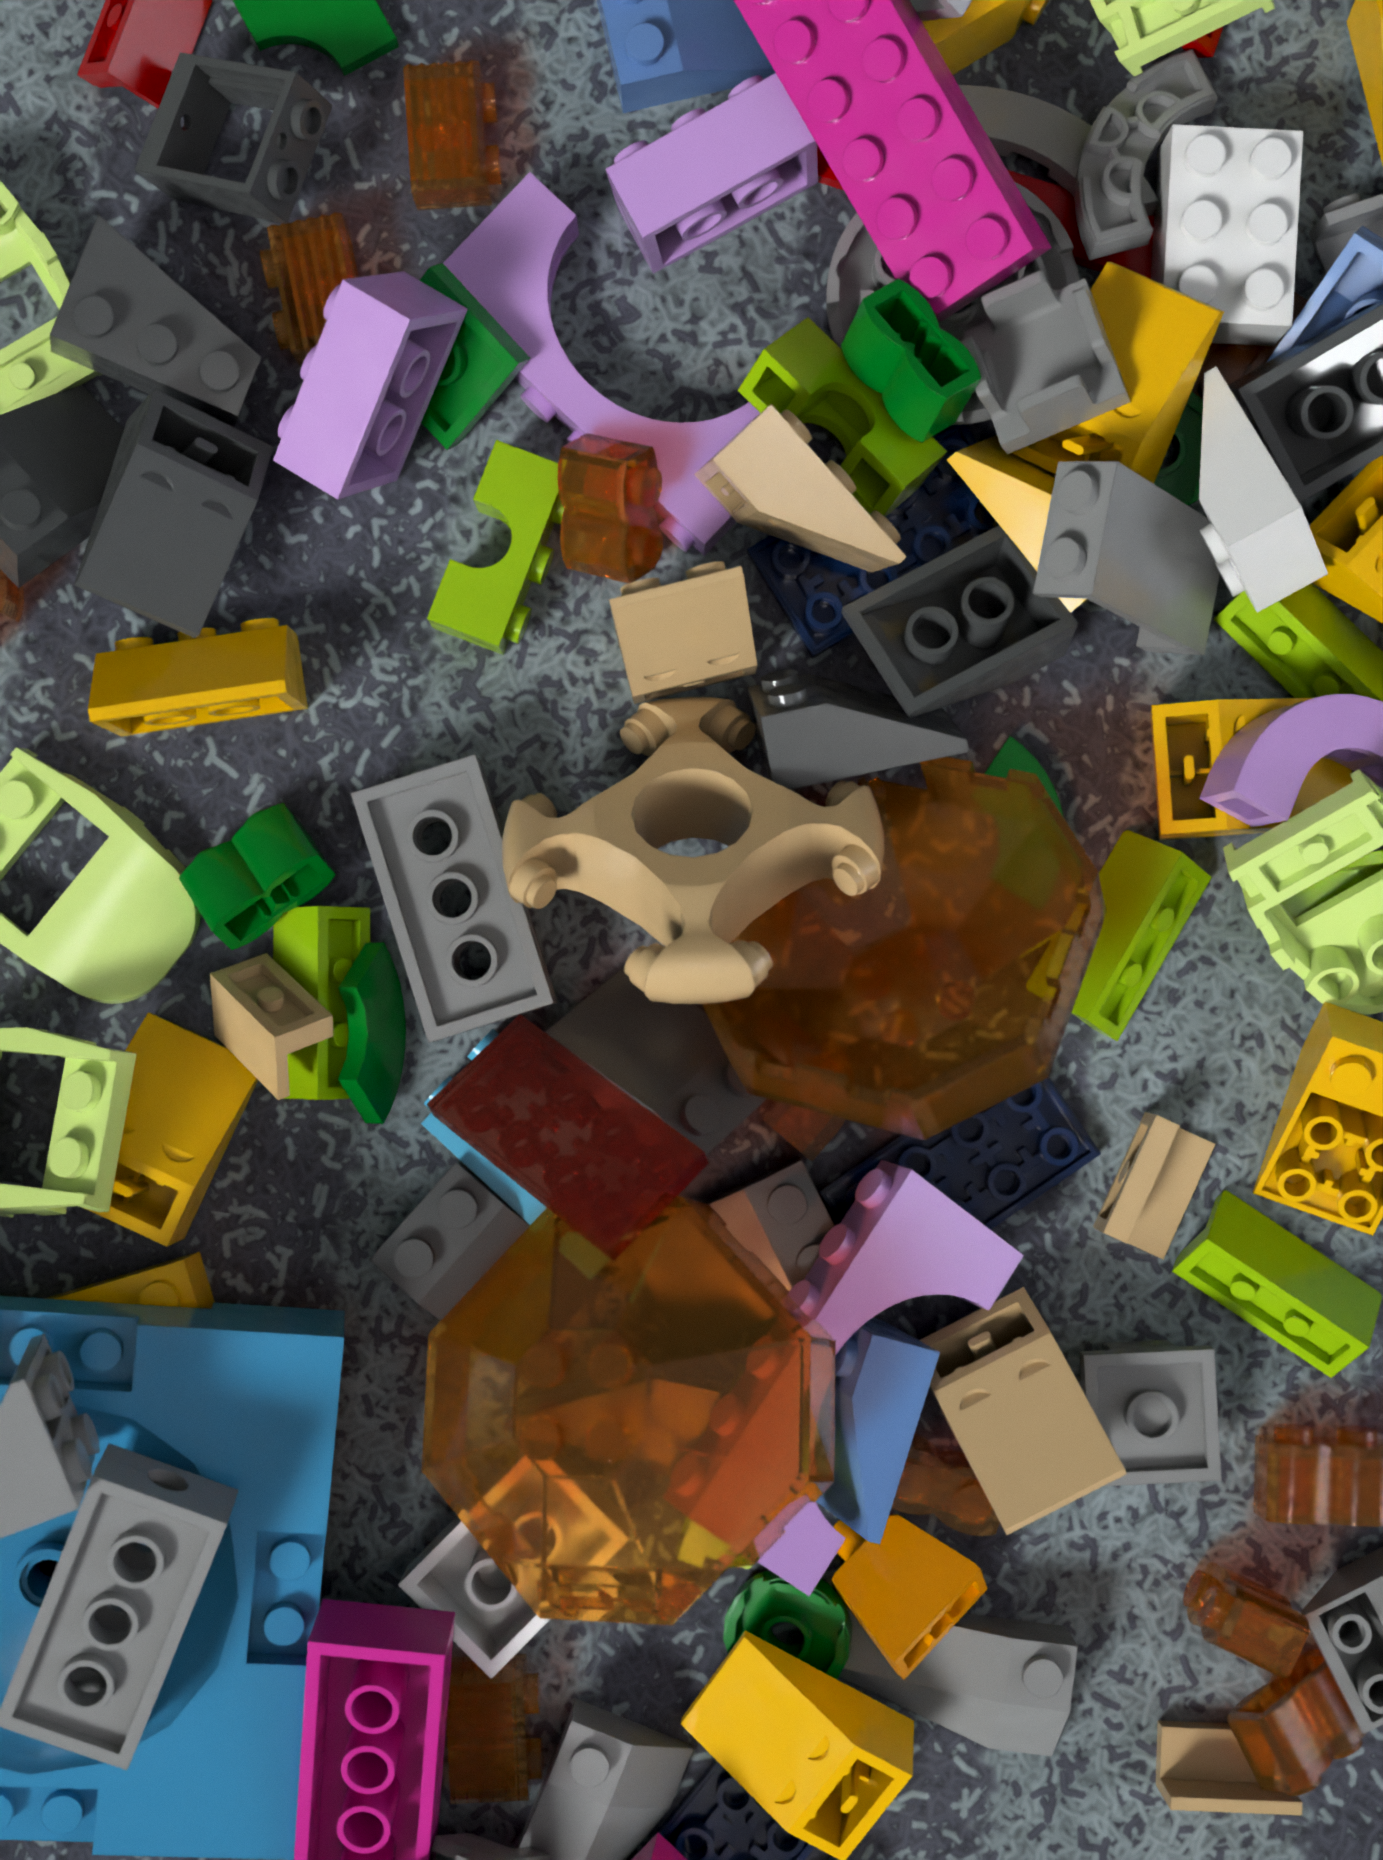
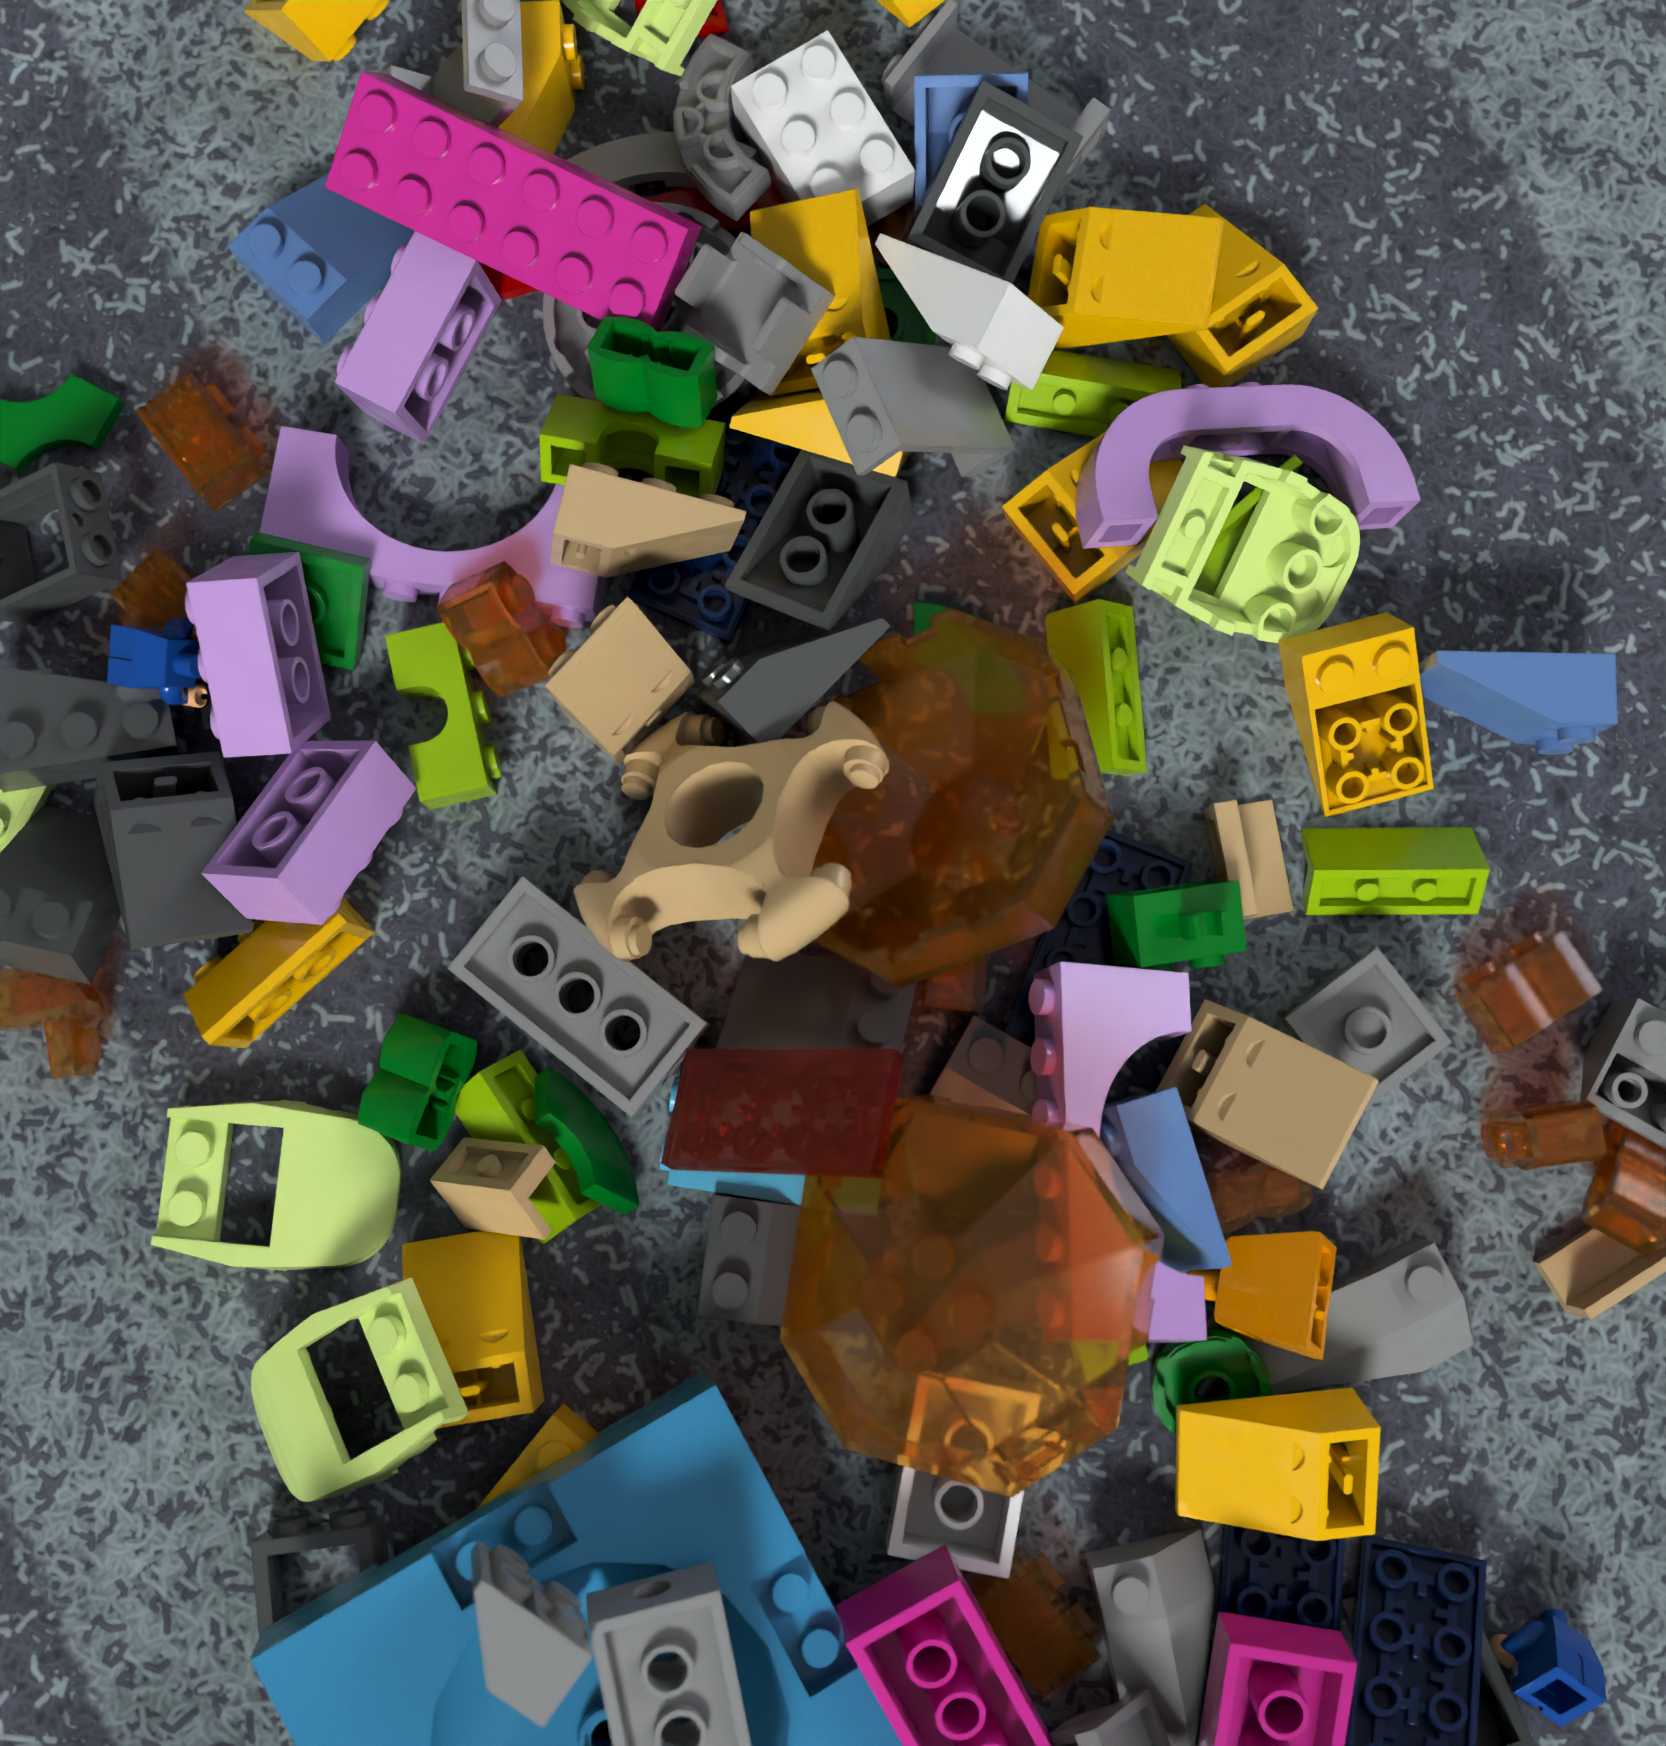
camera: 30 degrees left, 5 degrees down
(271, 325) = (158, 659): none -> blue piece
(308, 583) = (310, 832): none -> lavender brick
(1044, 1202) = (1177, 924): none -> green brick

